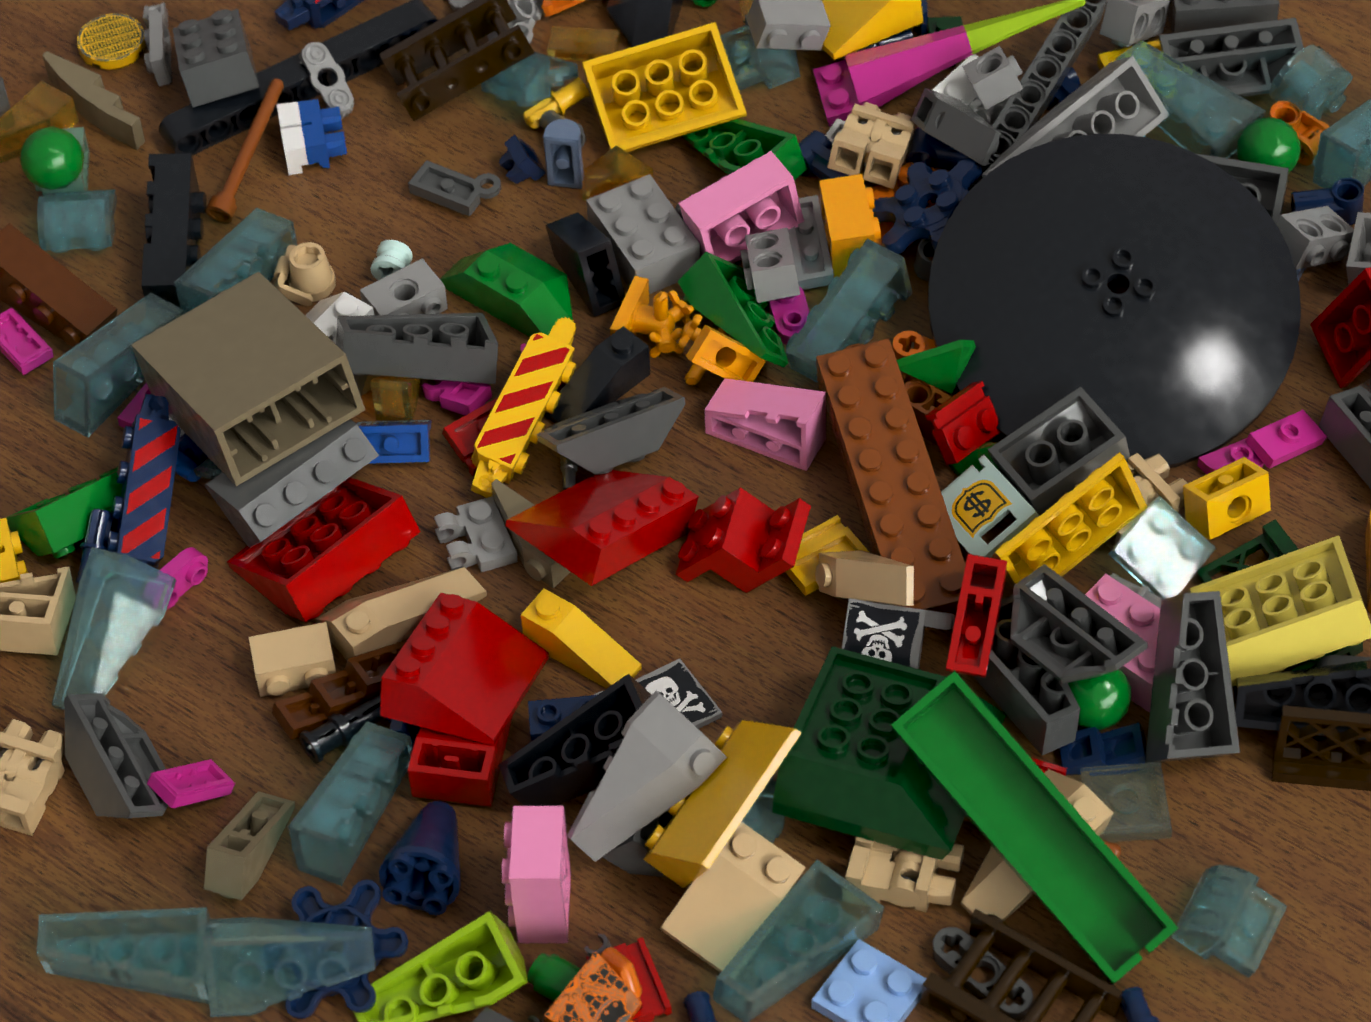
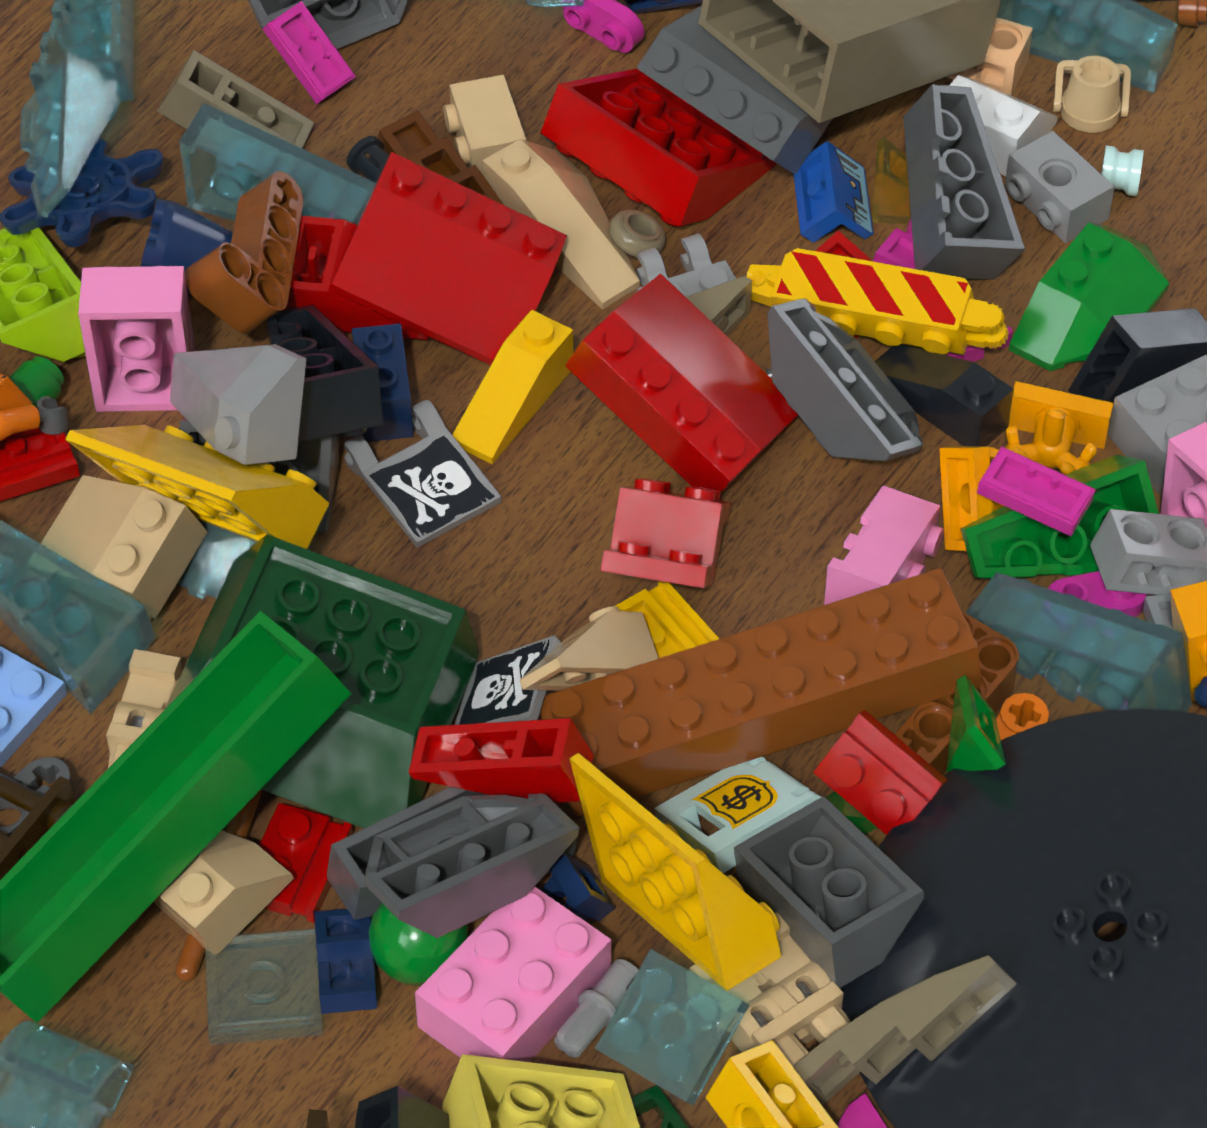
camera: 85 degrees right, 0 degrees up
(420, 562) = (636, 232): none -> dark tan piece
(453, 788) = (252, 274): none -> dark orange beam
(742, 304) = (1036, 491): none -> dark pink plate
(1171, 400) = (920, 1017): none -> dark tan slope
(1191, 682) = (394, 1028): dark grey wedge -> none

